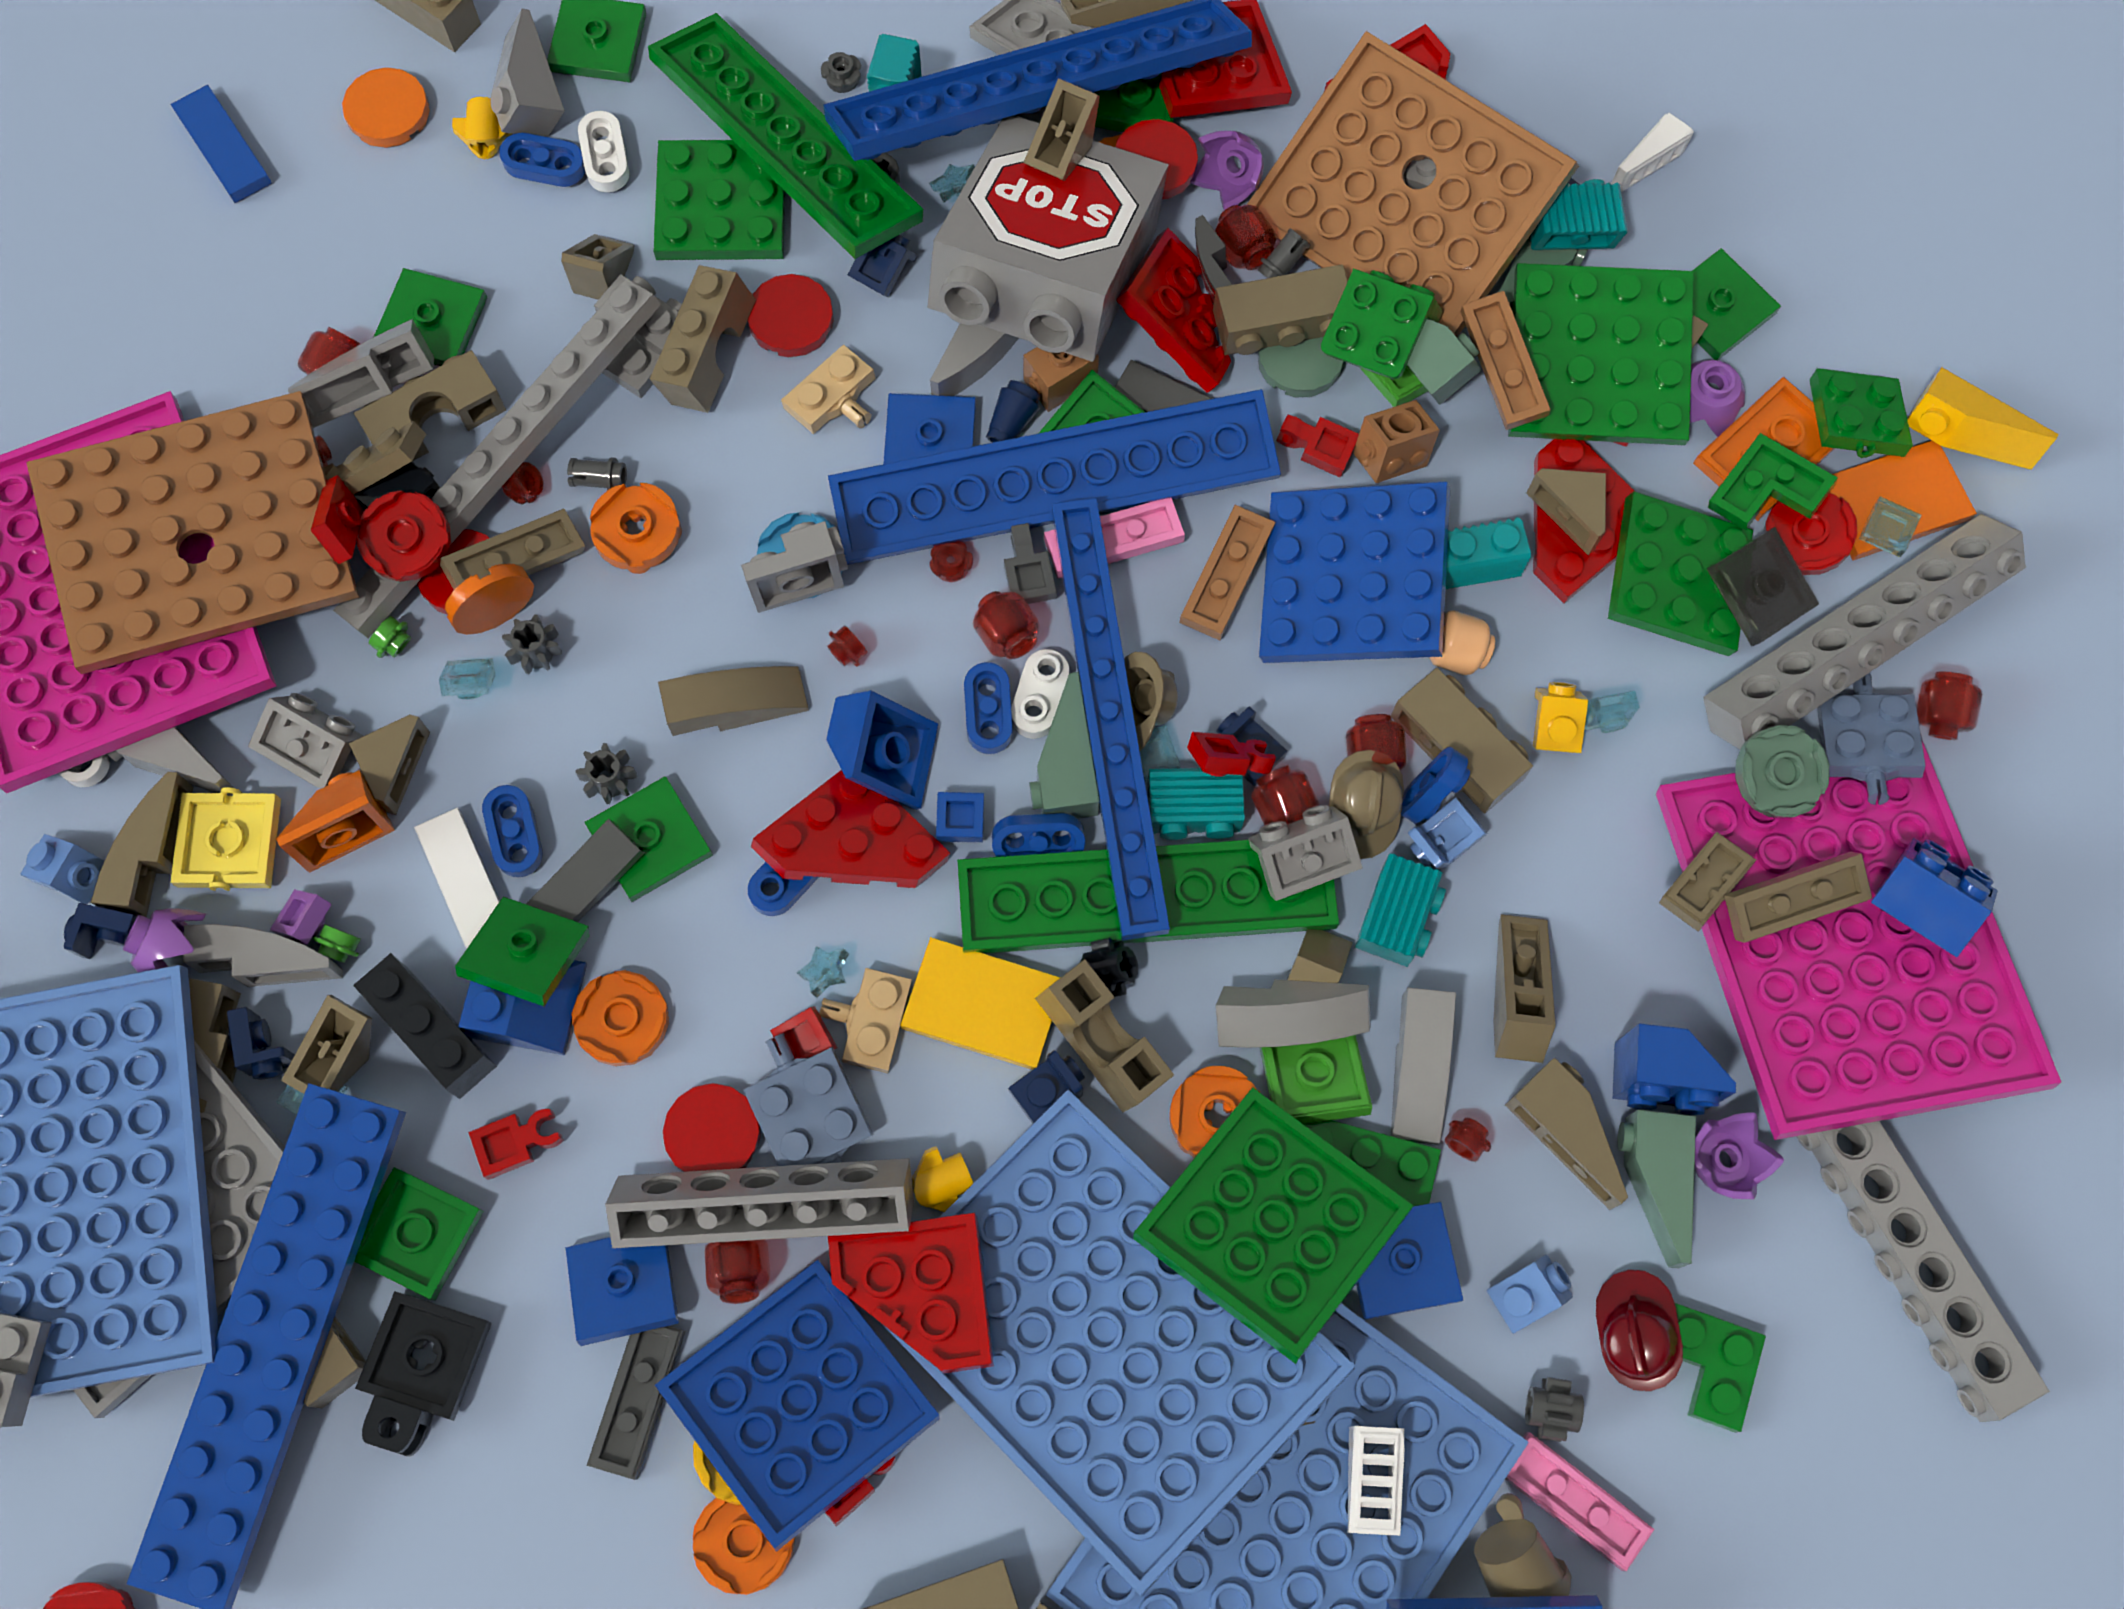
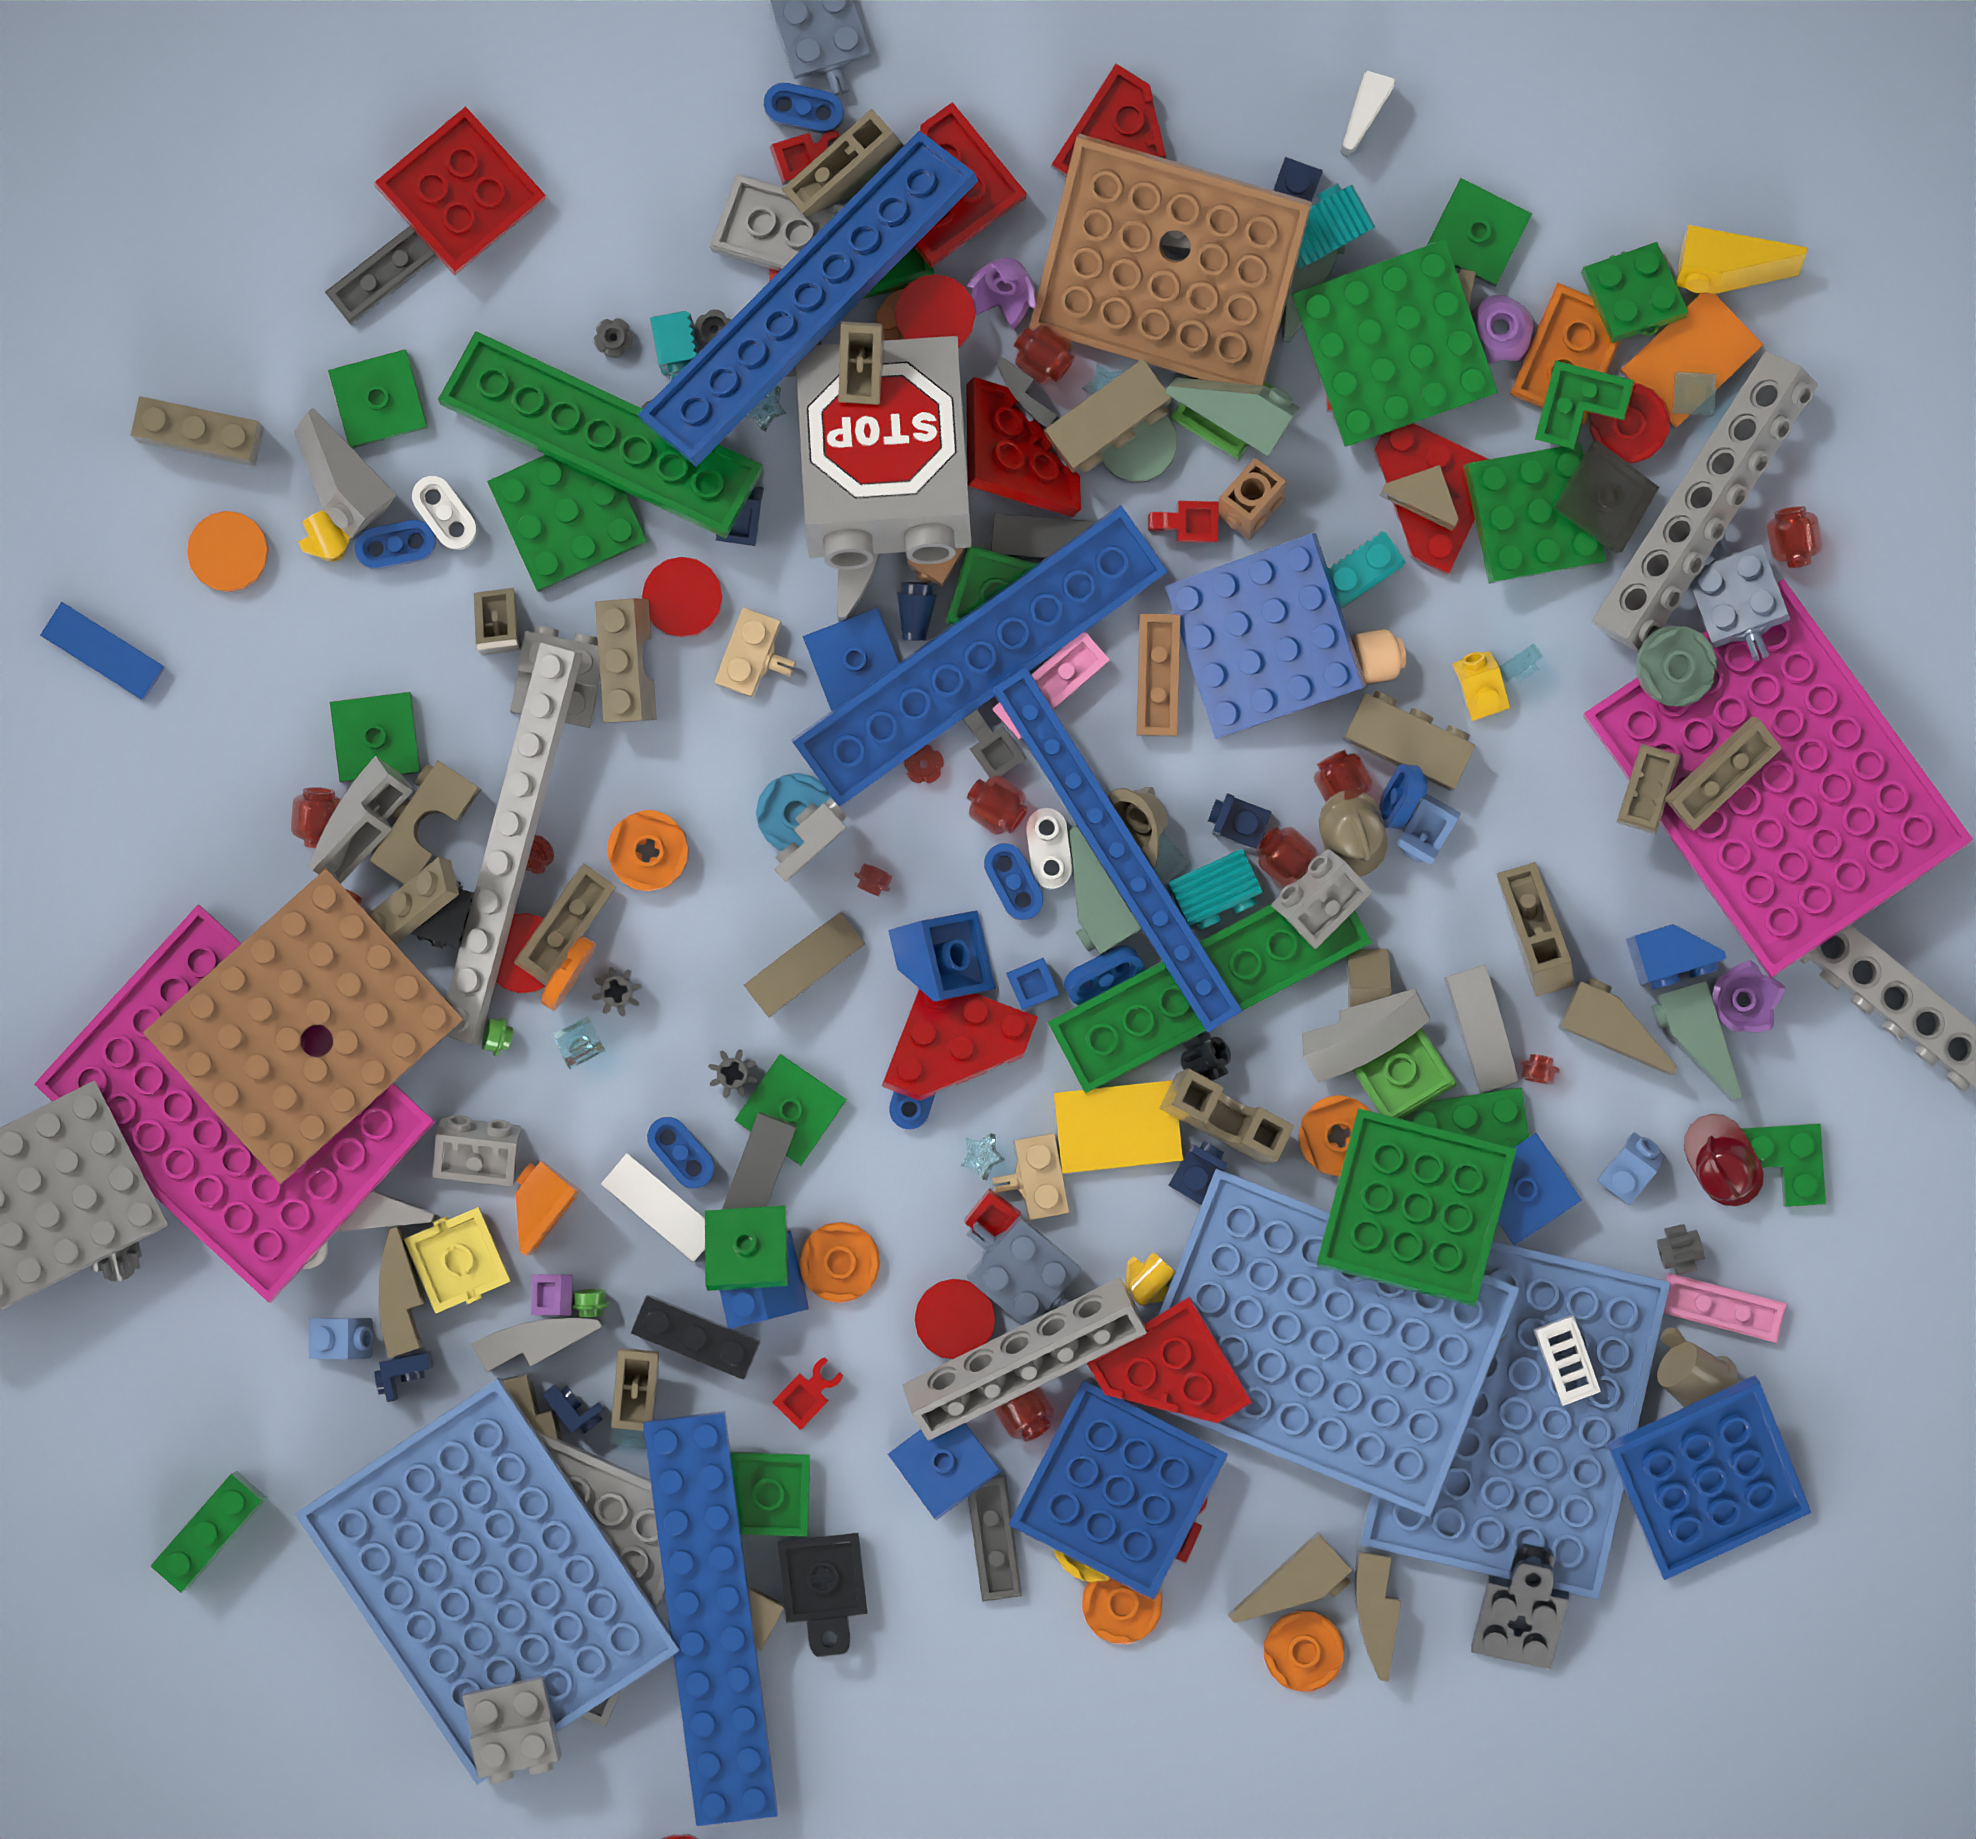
camera: 20 degrees left, 15 degrees up
(159, 937) = (458, 1366): medium lavender piece -> none
(337, 520) = (418, 966): red plate -> none
(390, 759) = (552, 1139): dark tan slope -> none
(403, 535) = (474, 952): red tile -> none
(596, 473) = (592, 817): dark grey pin -> none
(1225, 755) = (1227, 848): red plate -> none
(1284, 255) = (1086, 362): dark grey pin -> none
(1378, 323) = (1197, 405): green bracket -> none
(1400, 910) = (1416, 909): teal brick -> none
(1505, 360) = (1316, 395): medium nougat plate -> none
(1936, 895) = (1830, 724): blue slope -> none

